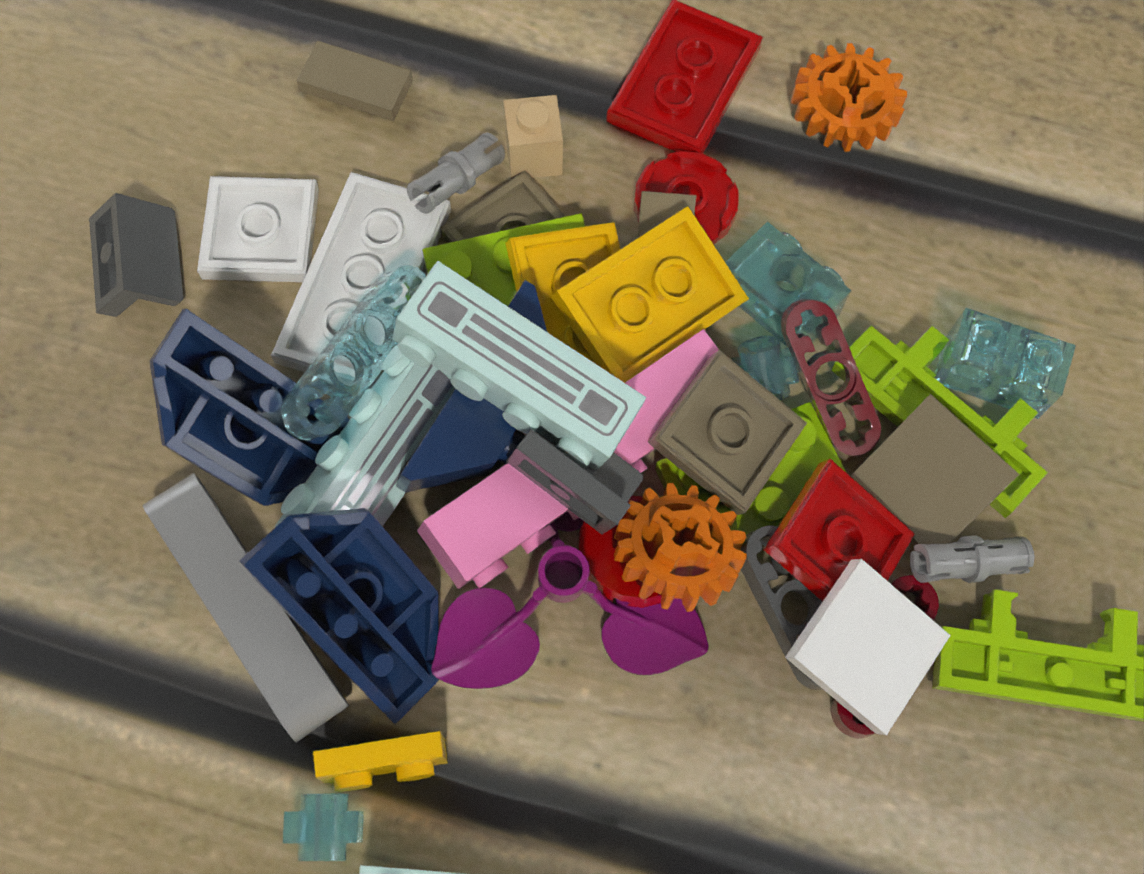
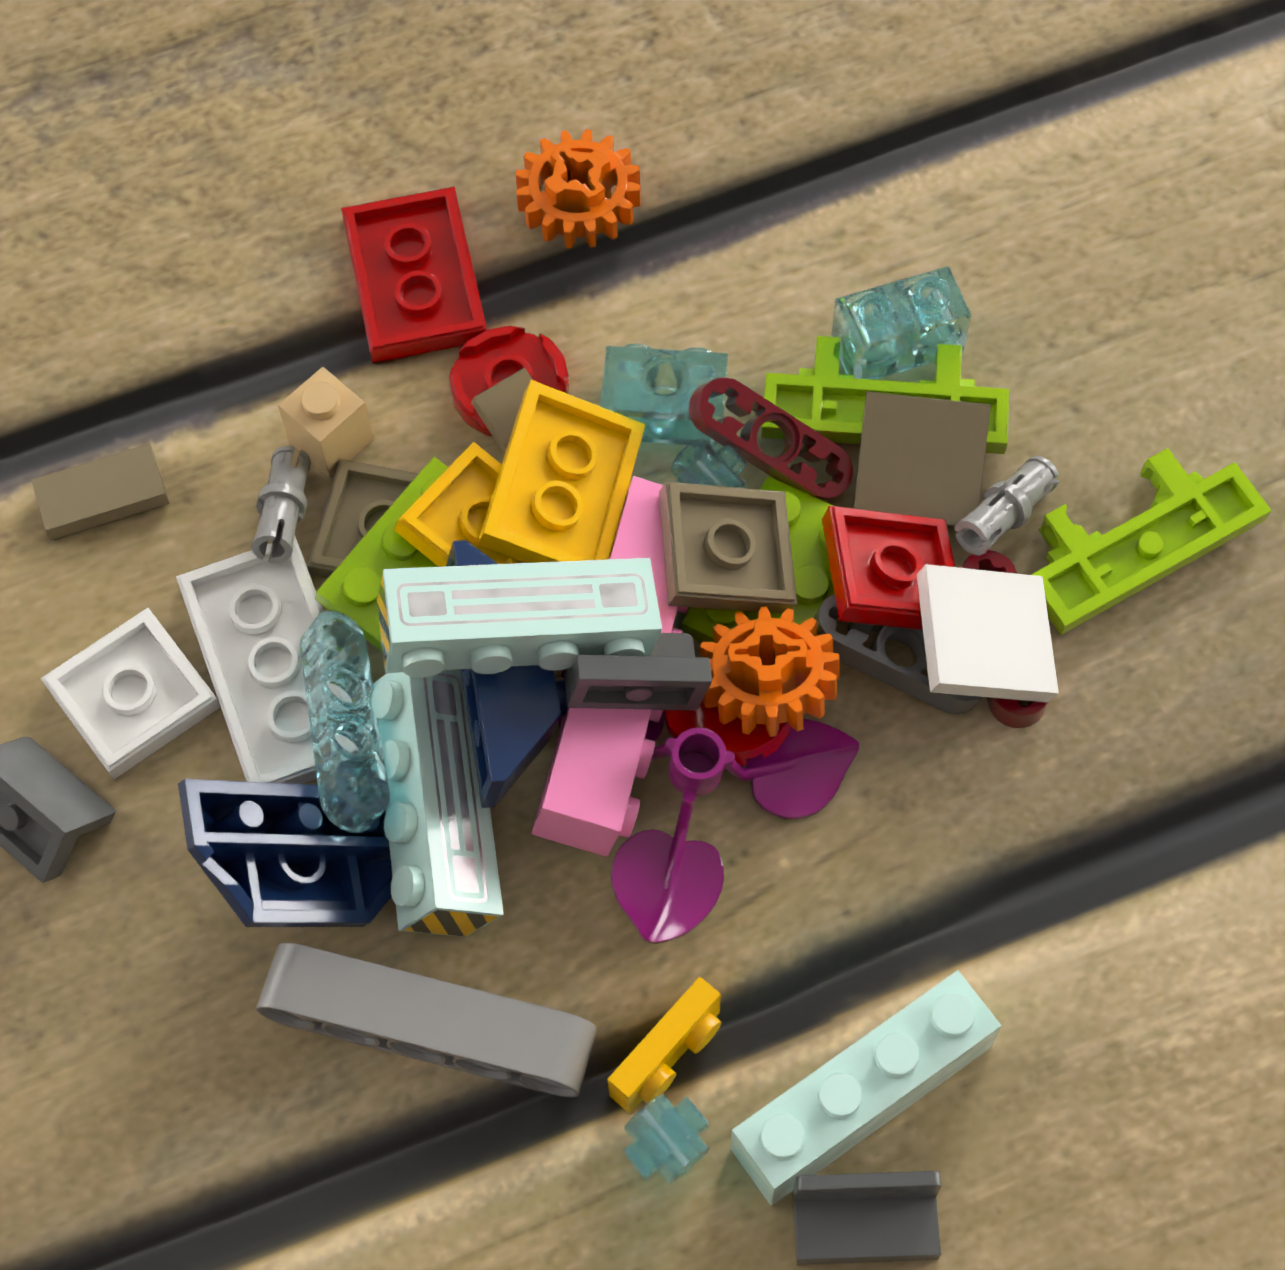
camera: 35 degrees left, 5 degrees down
(355, 600) = (537, 933): dark blue wedge -> none

